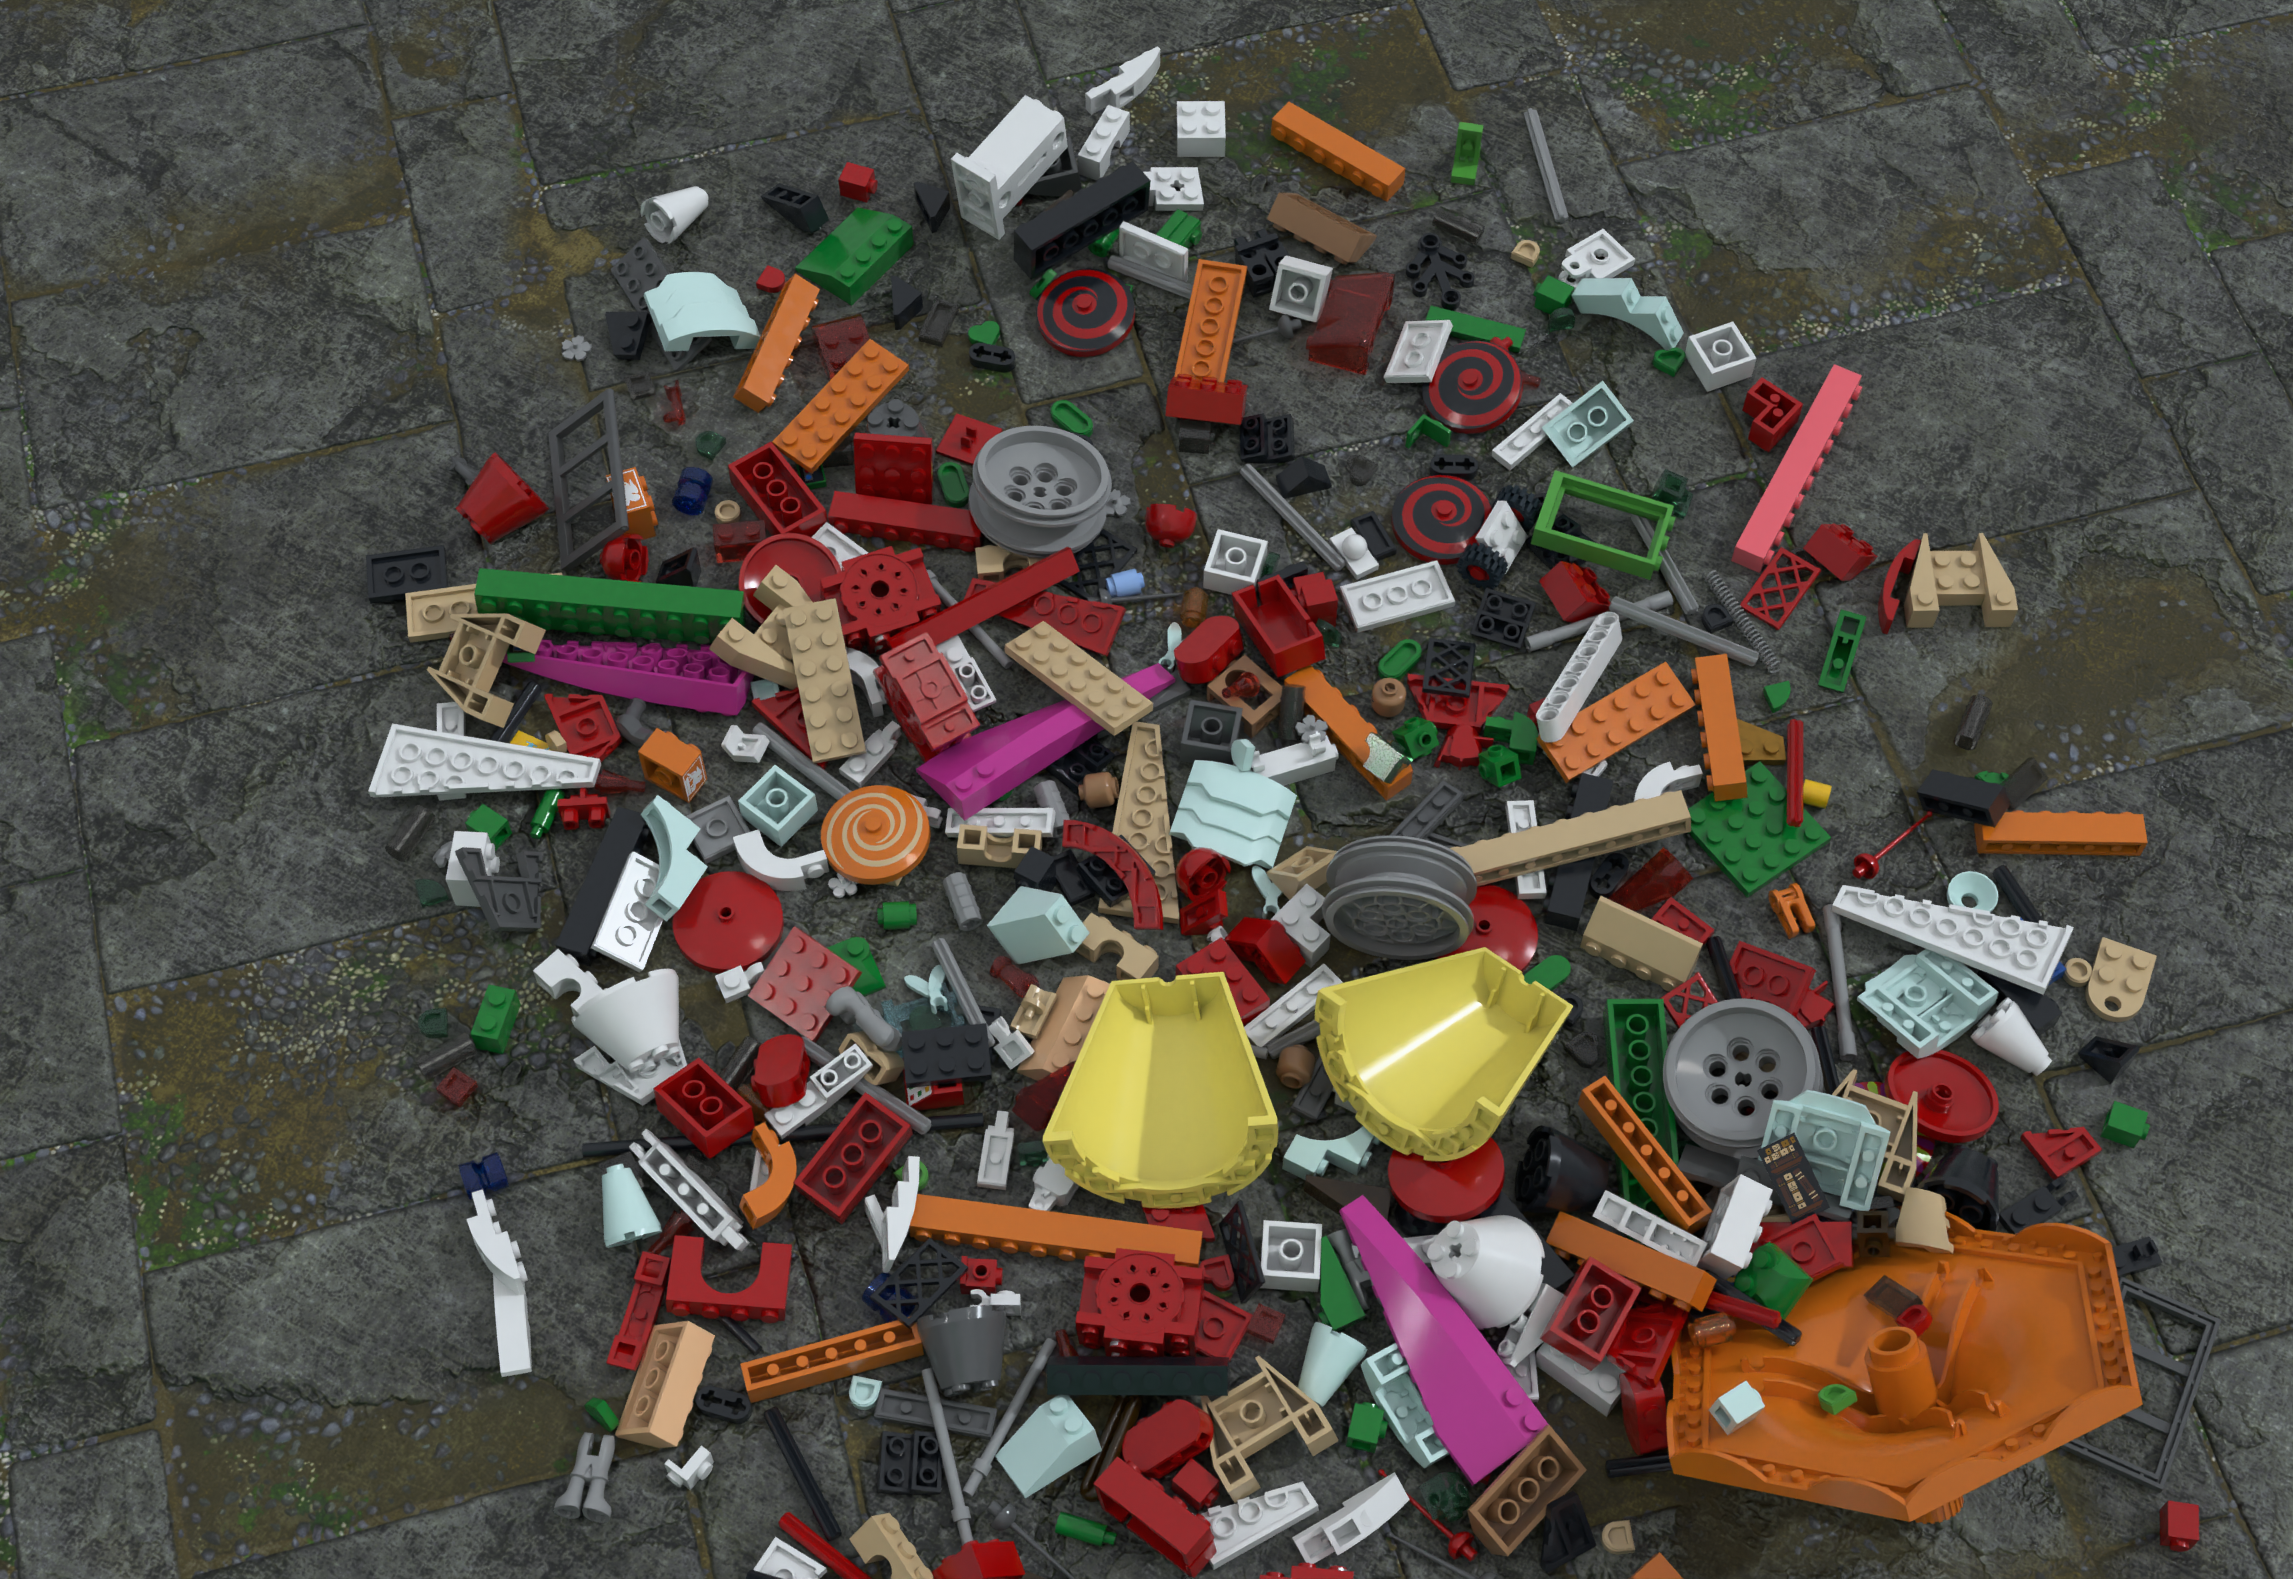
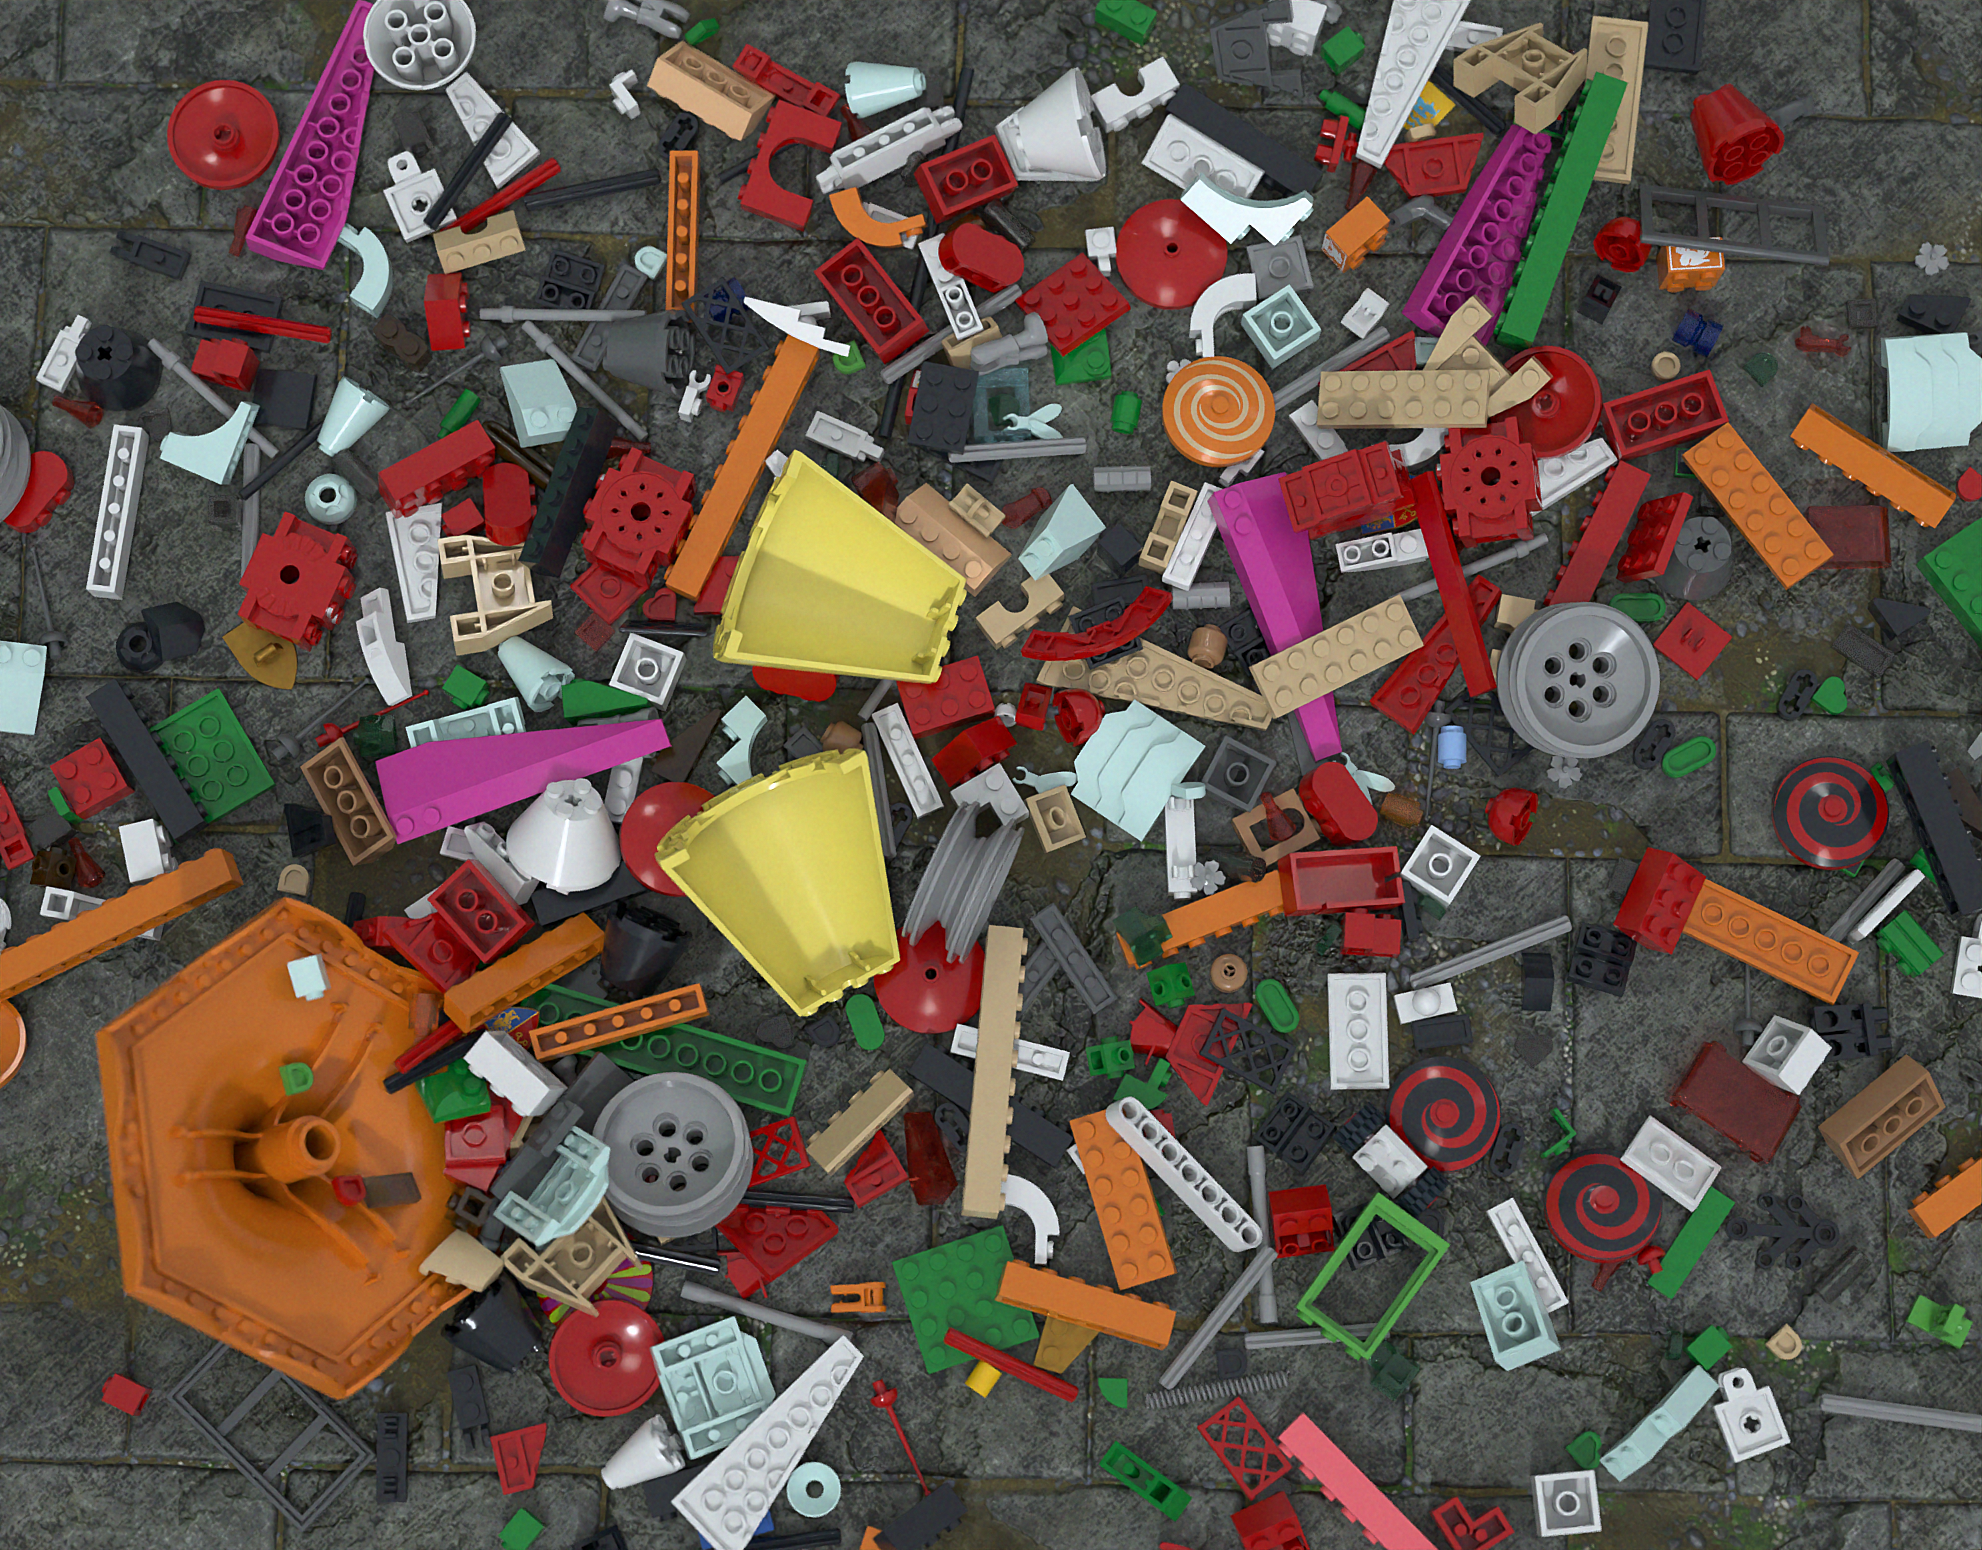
camera: 110 degrees right, 20 degrees up
(737, 539) = (1618, 366): clear red brick -> none
(1012, 1046) = (947, 479): white plate -> none
(1650, 1229) = (542, 1003): white slope -> none
(1793, 1178) = (538, 1146): black sticker -> none

